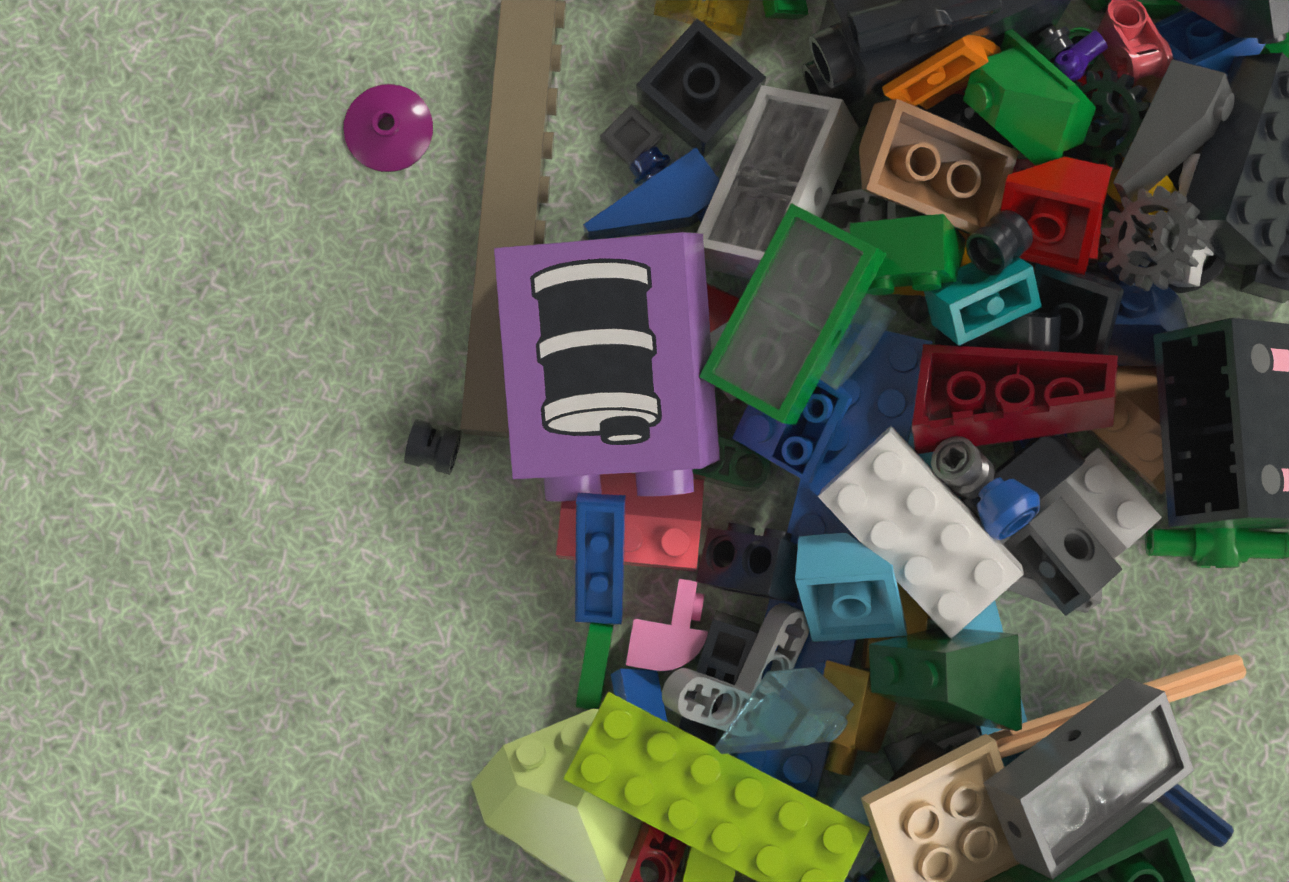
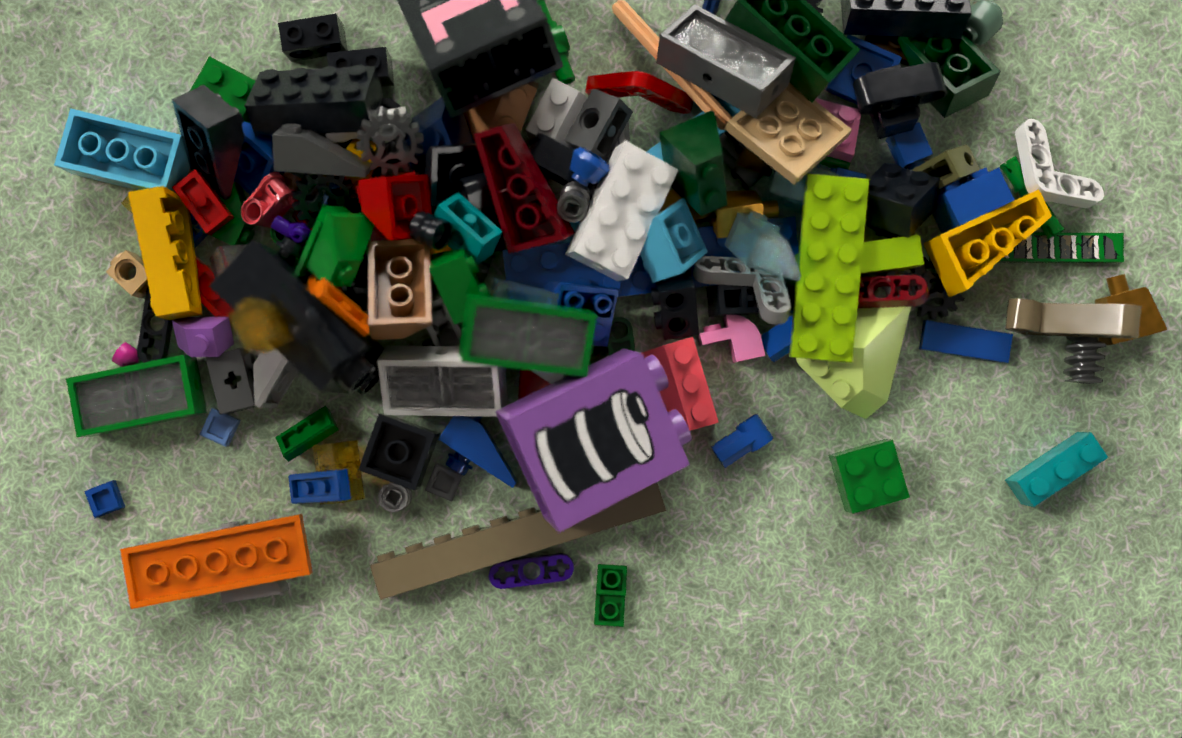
camera: 110 degrees left, 5 degrees up
(372, 305) = (610, 595): none -> green slope
(386, 748) = (869, 476): none -> green brick
(392, 148) = (502, 618): magenta dish -> none
(432, 446) = (681, 523): black wheel -> none
(435, 237) = (509, 566): none -> dark purple beam
(516, 593) = (746, 438): none -> blue piece
(594, 666) = (770, 374): green beam -> none
(599, 558) = (711, 395): blue tile -> none
(635, 68) = (400, 495): none -> light grey wheel
(1097, 645) = (643, 85): none -> red beam

